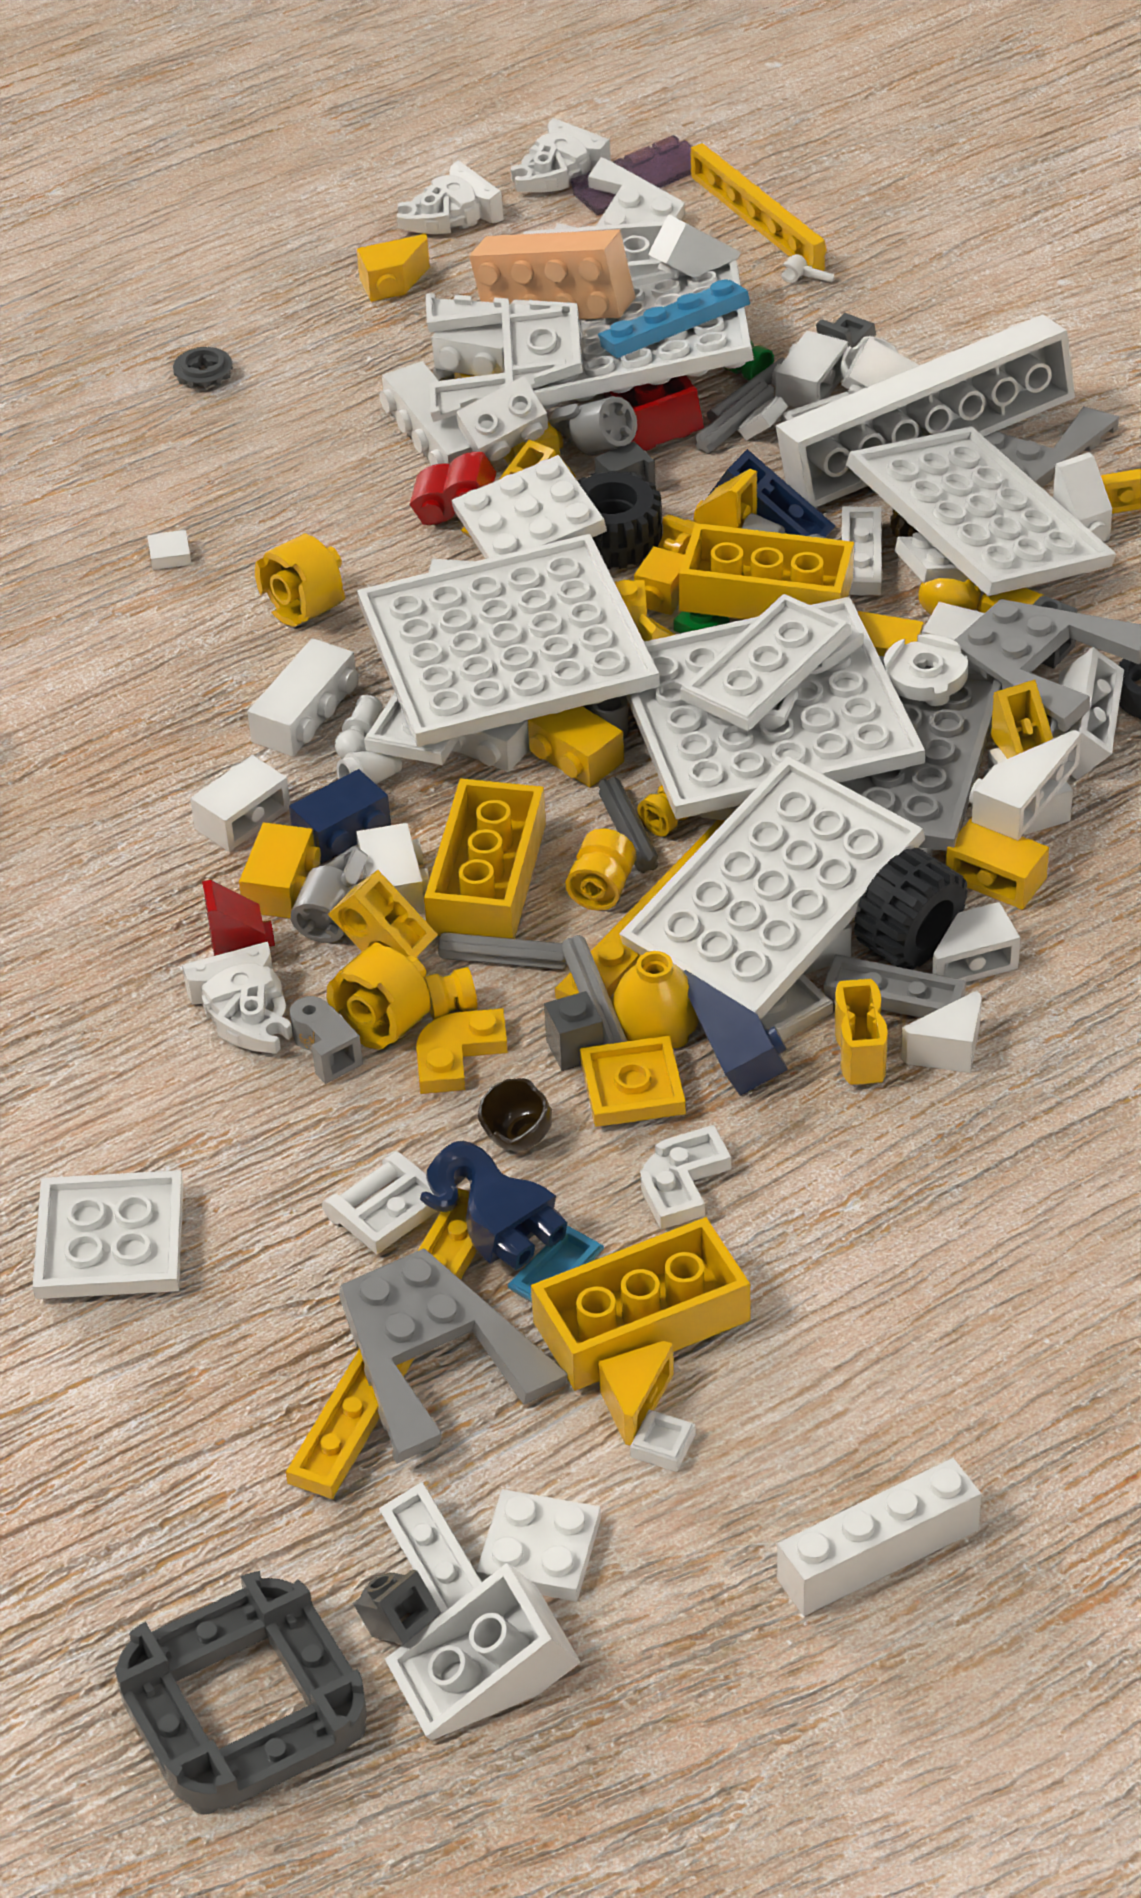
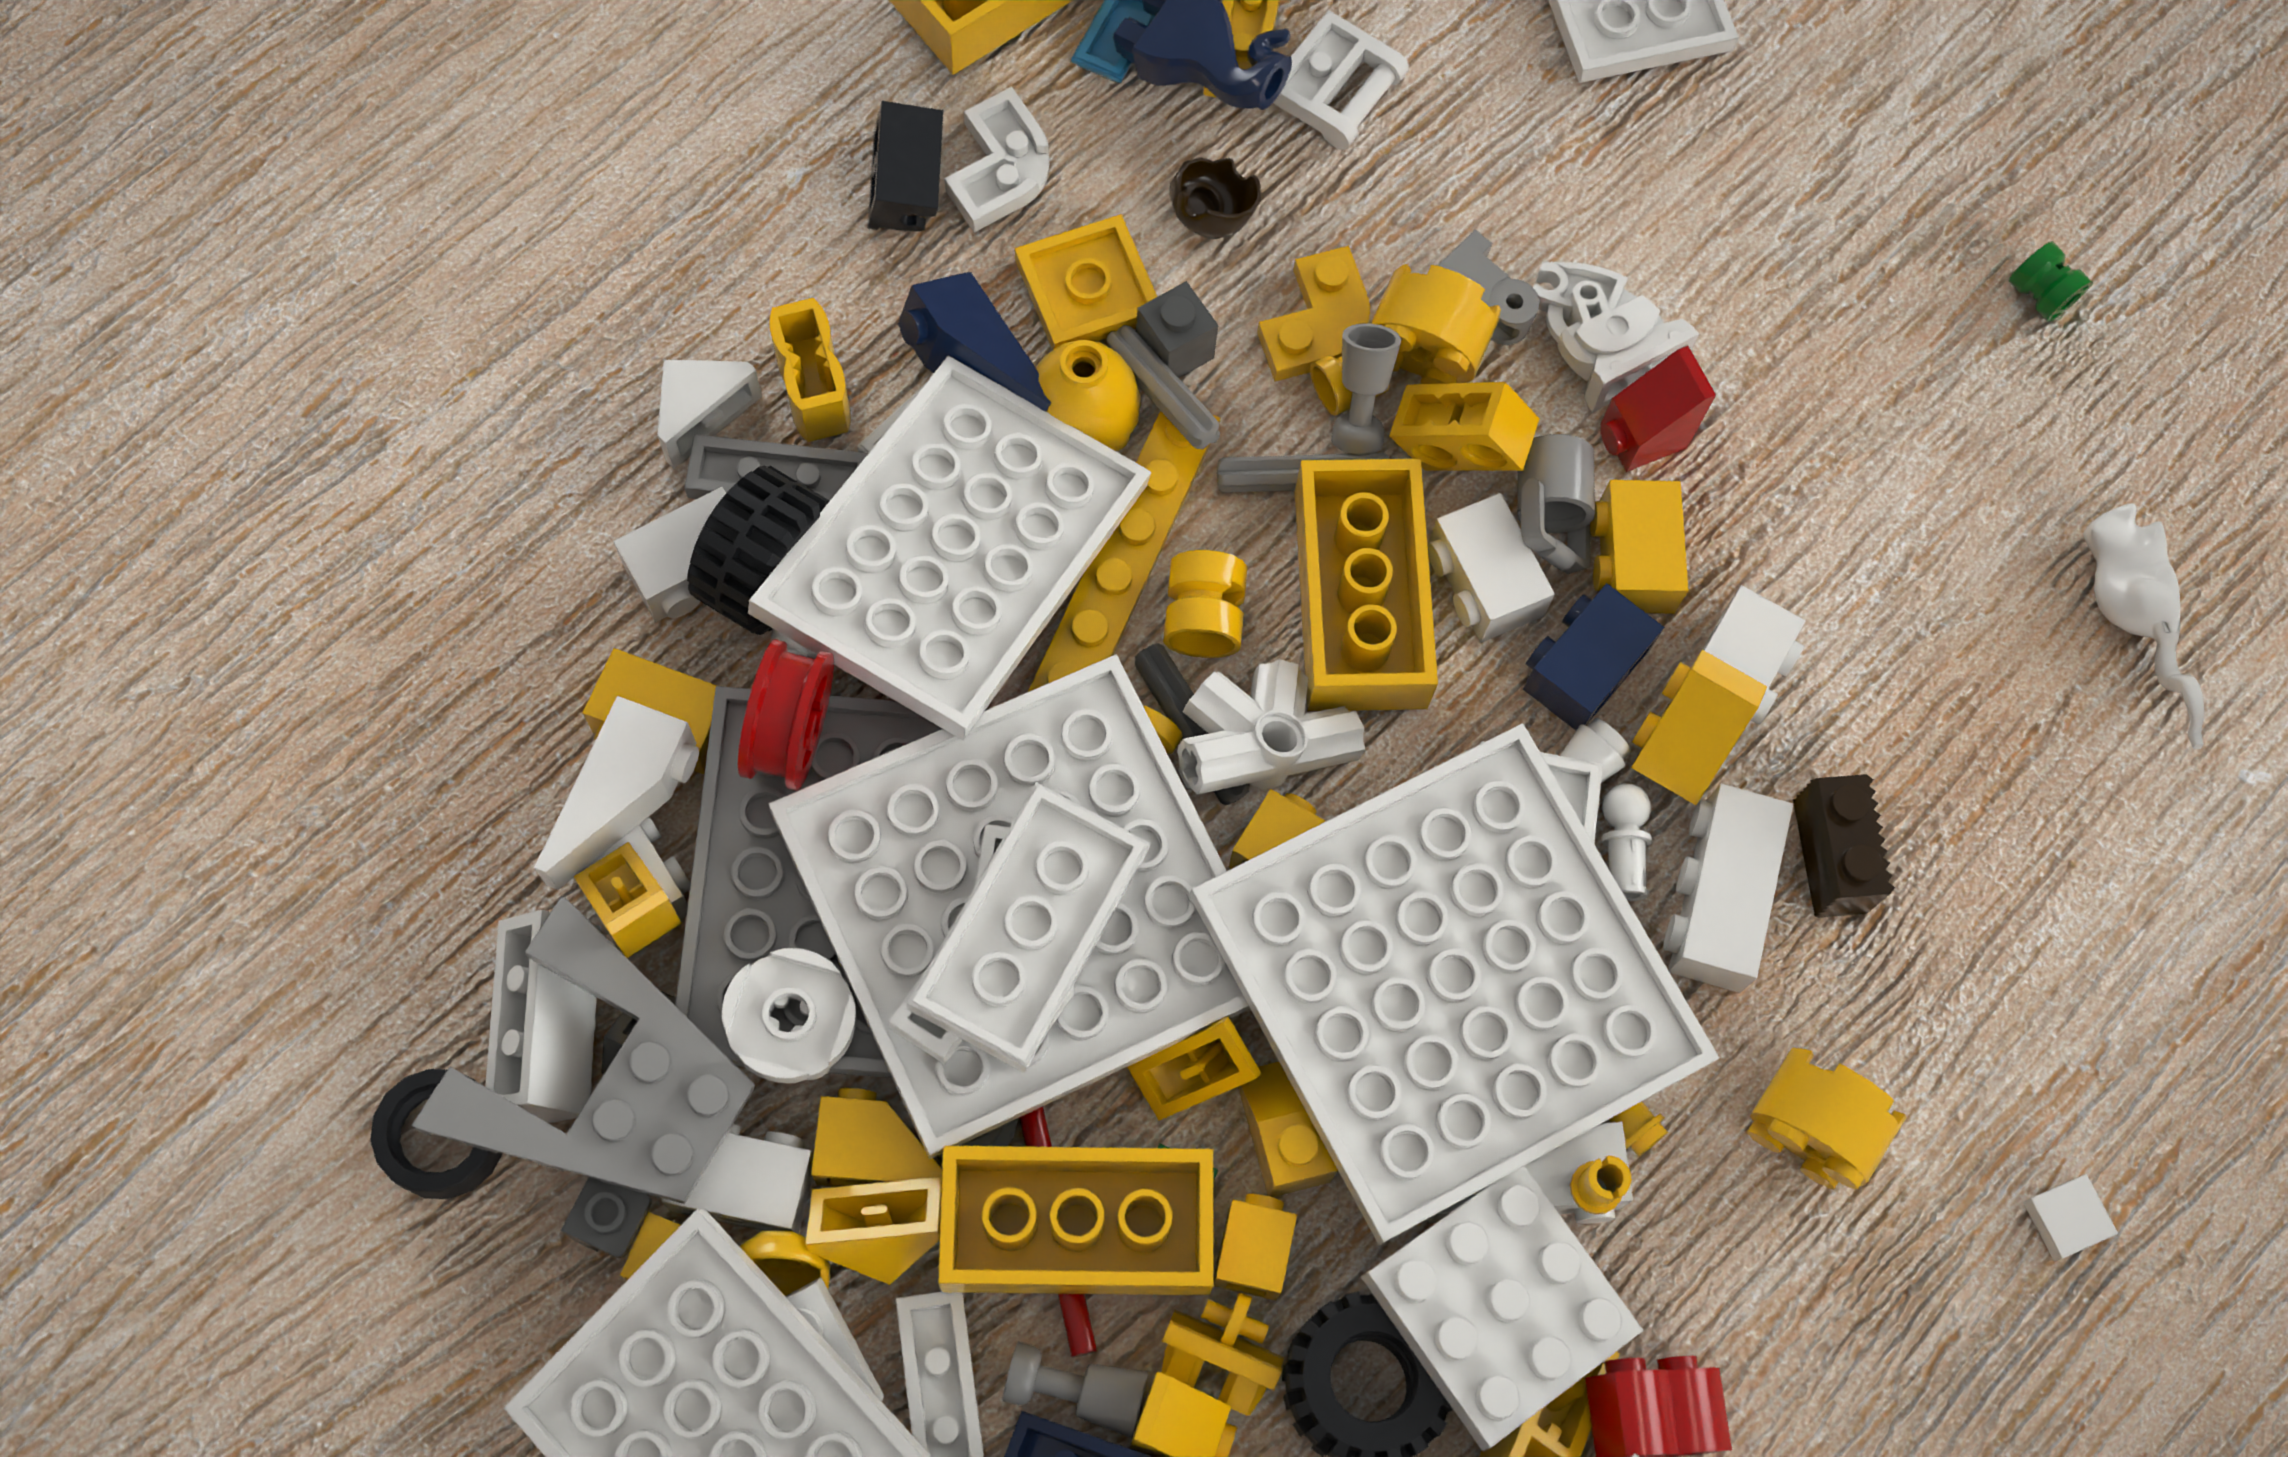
camera: 160 degrees right, 25 degrees up
(220, 703) = (1842, 845): none -> dark brown brick
(291, 751) = (1698, 727): none -> yellow brick
(440, 950) = (1367, 368): none -> light grey piece
(452, 545) = (1588, 1192): none -> yellow pin
(589, 785) = (1263, 734): none -> white piece
(762, 1175) = (905, 167): none -> black hinge
(887, 594) = (876, 1225): none -> yellow slope
(906, 772) = (785, 714): none -> red wheel

